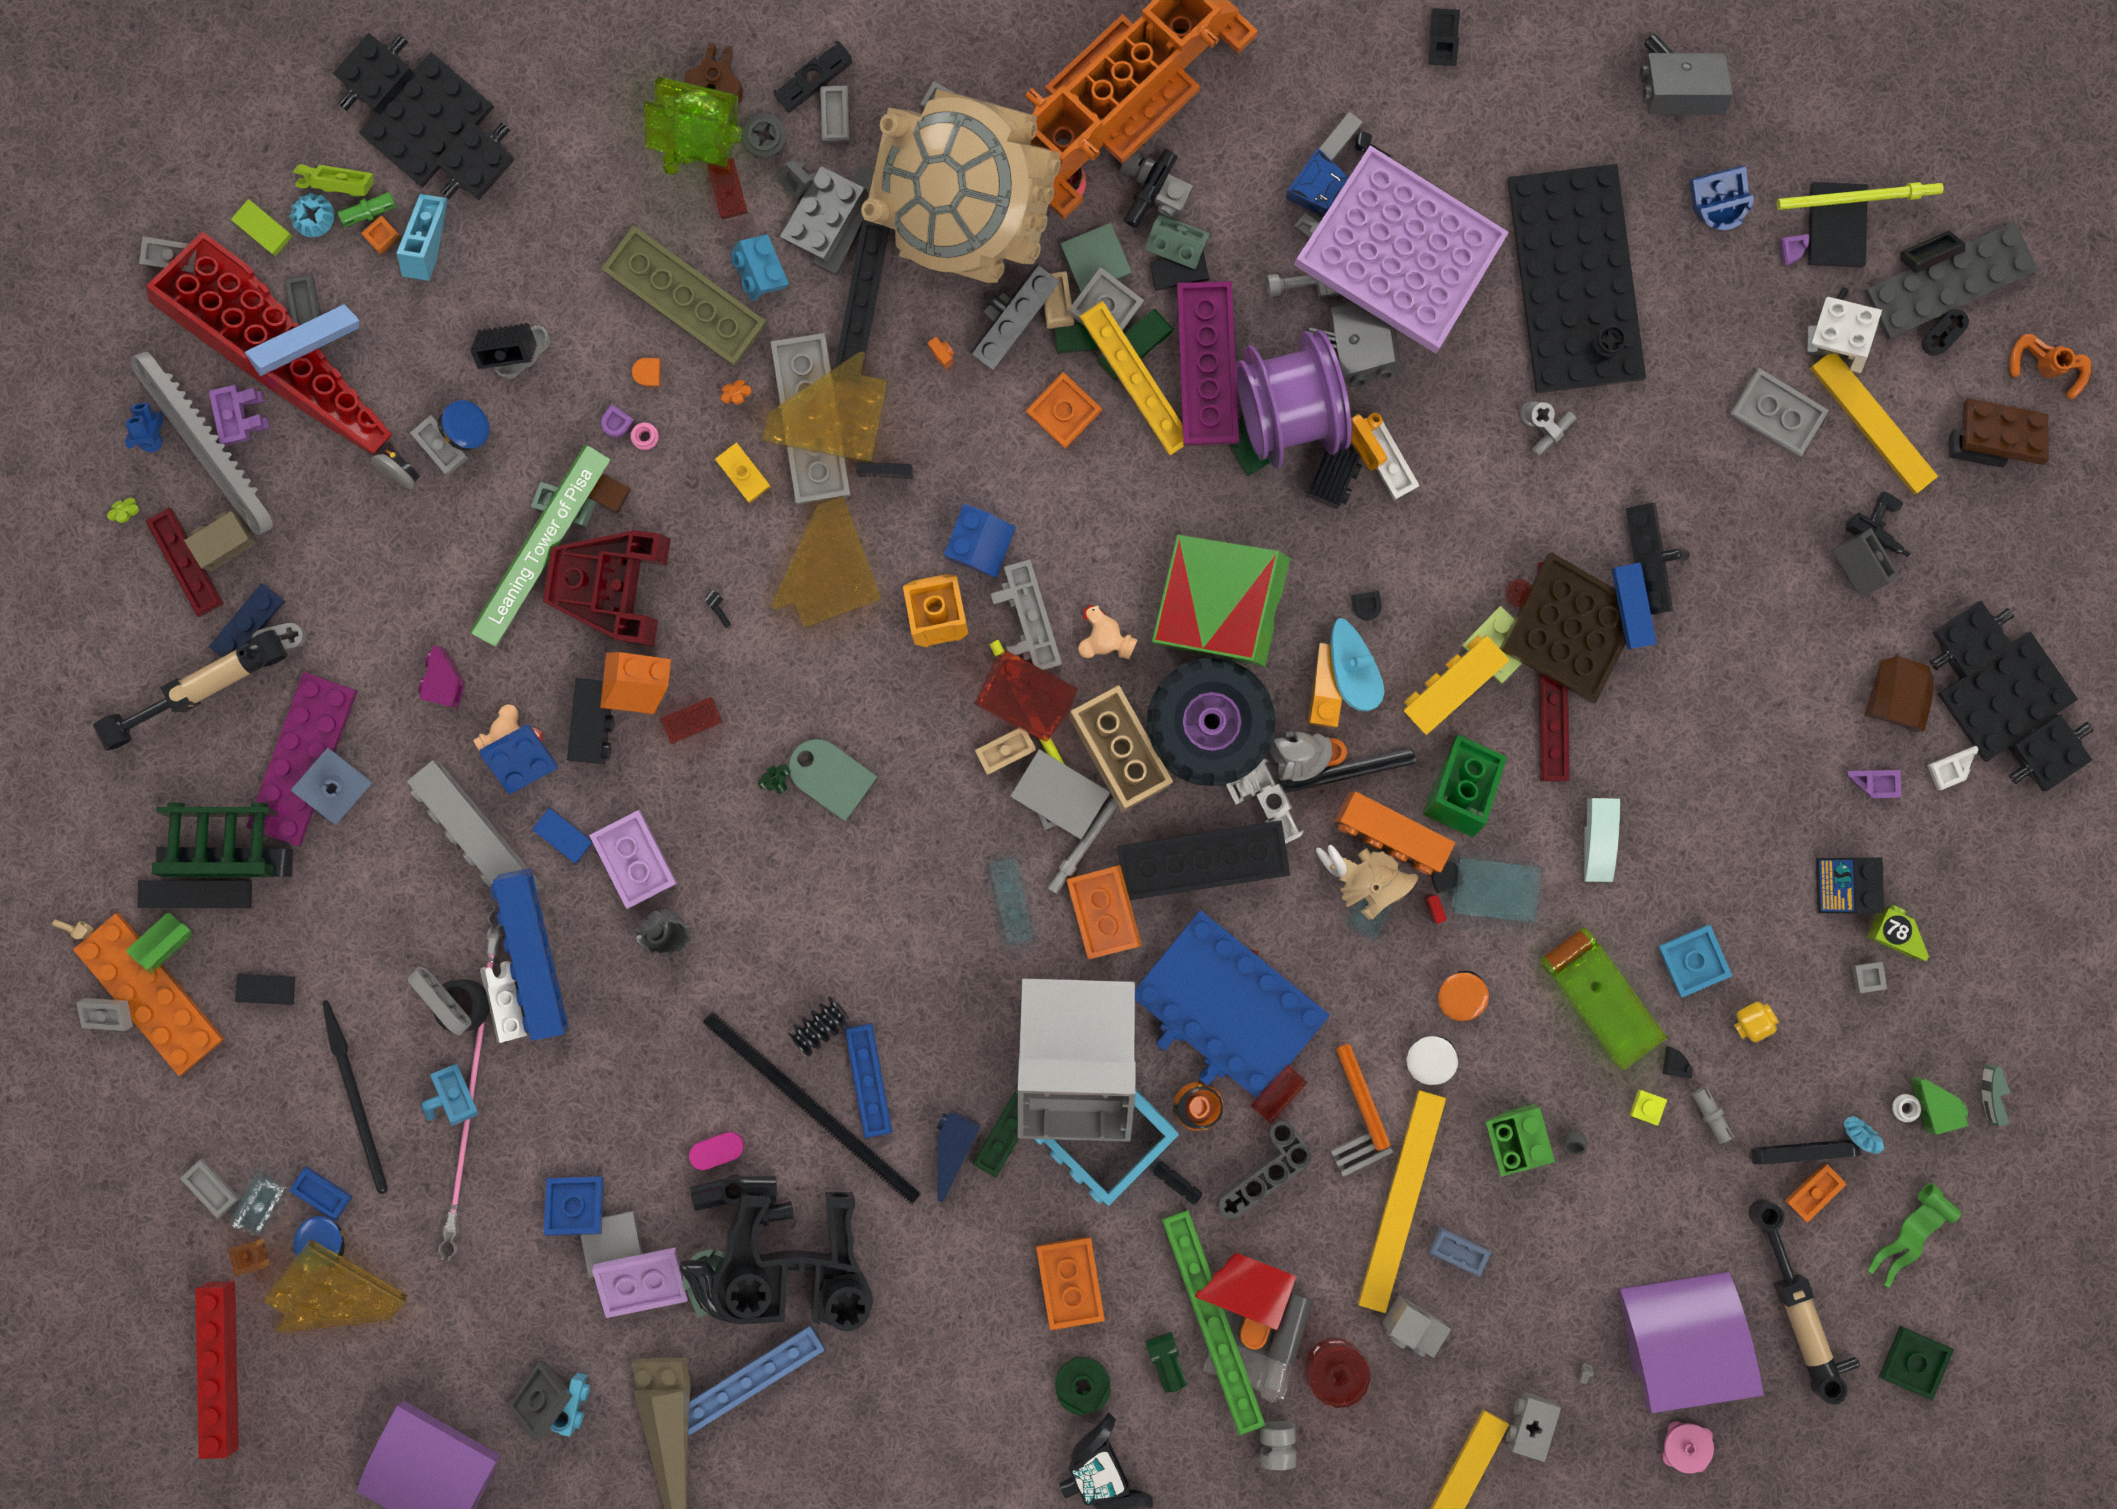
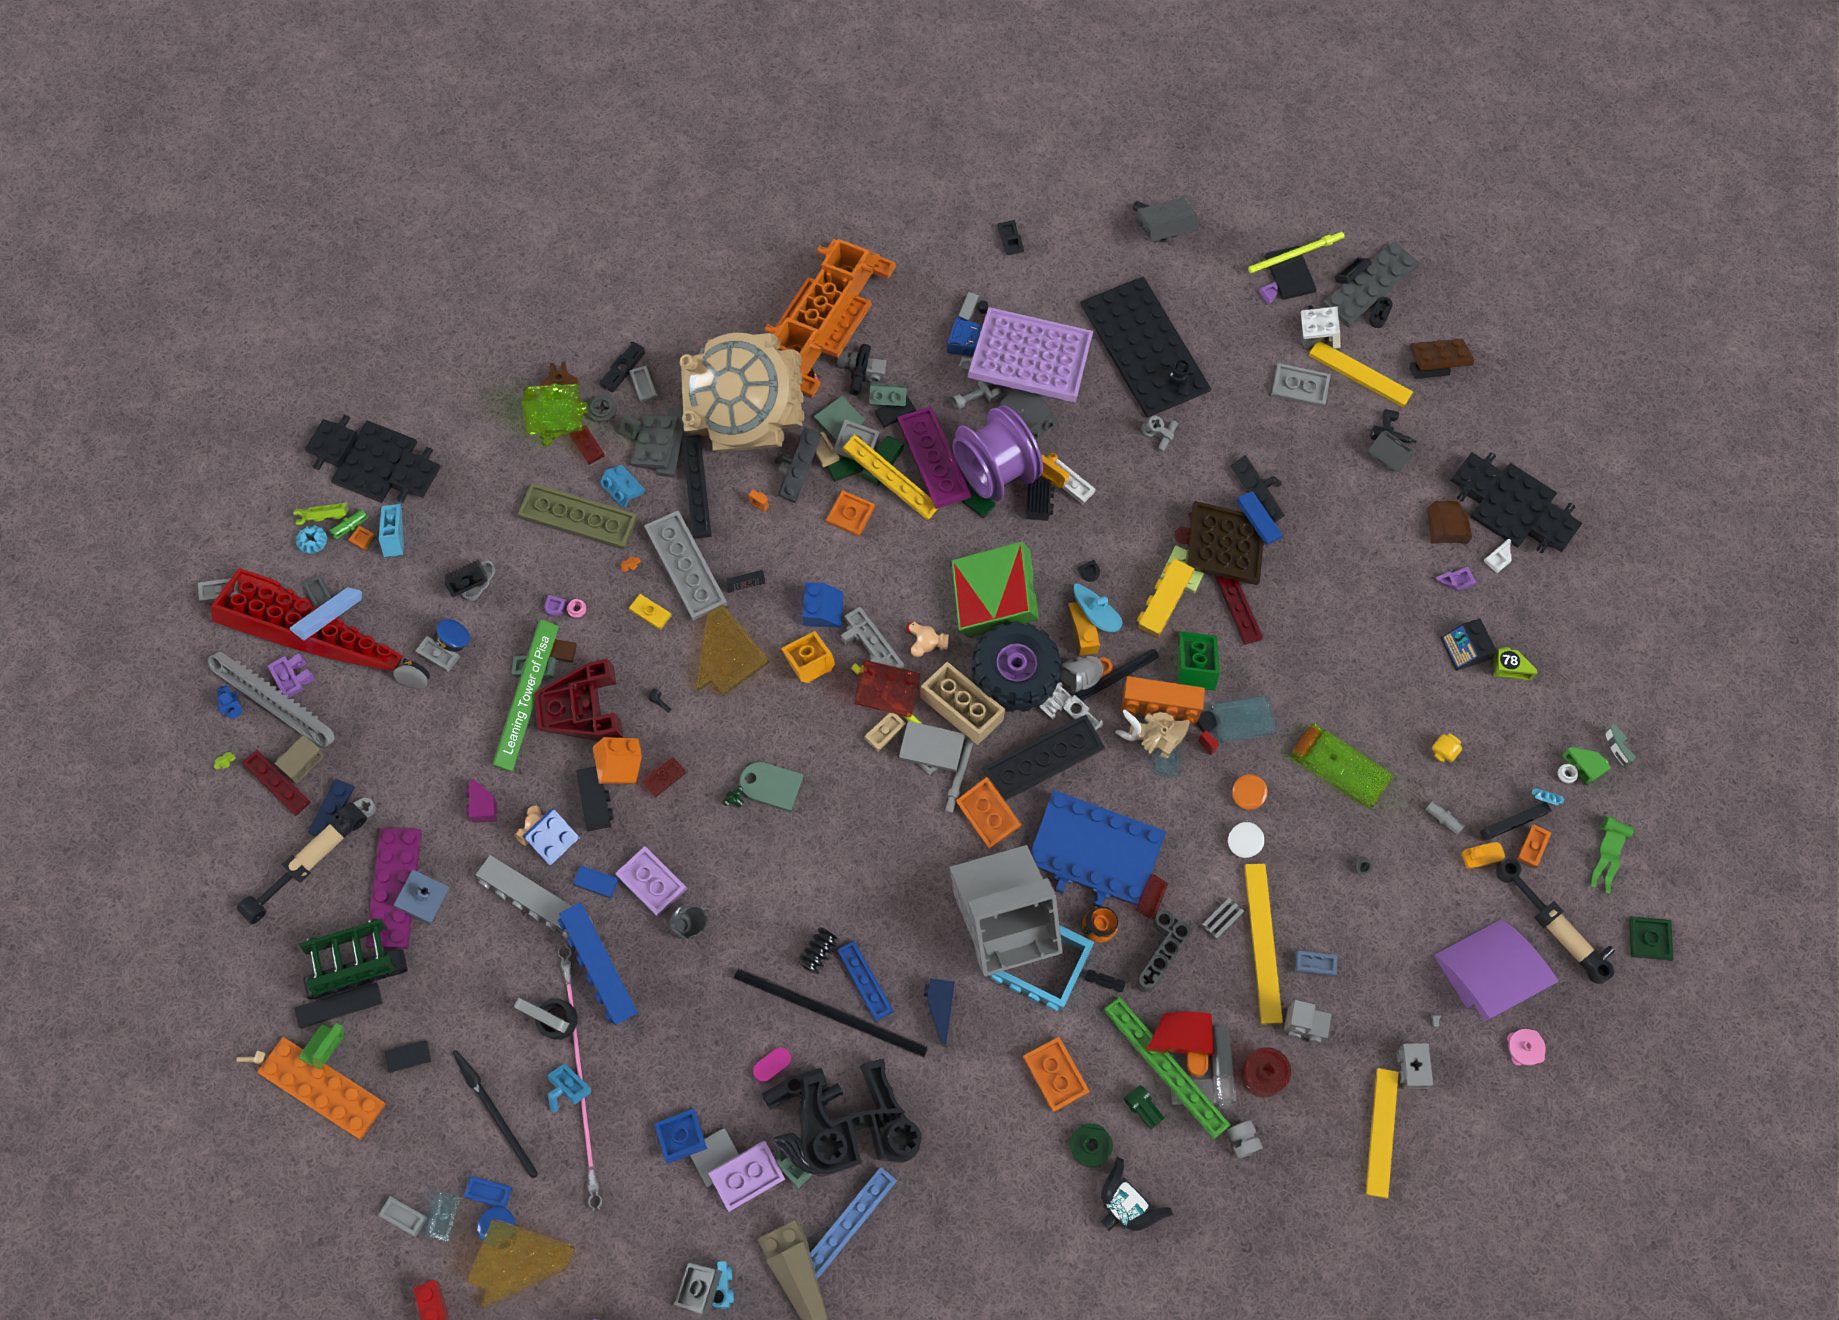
camera: 20 degrees left, 20 degrees down
(104, 1014) = (292, 1109): light grey plate -> none
(240, 1257) = (439, 1252): clear orange plate -> none
(261, 227) = (278, 556): lime tile -> none
(503, 1003) = (586, 1007): white plate -> none
(647, 372) = (566, 569): orange tile -> none
(833, 414) = (700, 555): clear yellow wing -> none
(1000, 1140) = (972, 990): dark green tile -> none
(1011, 901) = (923, 828): clear light blue tile -> none
(1363, 1097) = (1207, 877): orange axle -> none
(1519, 1140) = (1326, 872): bright green slope -> none
(1601, 839) = (1298, 665): light aqua slope -> none
(1648, 1107) = (1401, 827): neon yellow plate -> none
(1676, 1064) = (1407, 793): black tile -> none
(1694, 961) = (1390, 723): dark azure plate -> none
(1722, 197) = (1214, 277): blue slope -> none
(1742, 1181) = (1483, 855): none -> light orange piece
(1869, 977) = (1506, 698): light grey plate -> none
(2051, 362) = (1451, 309): orange piece -> none

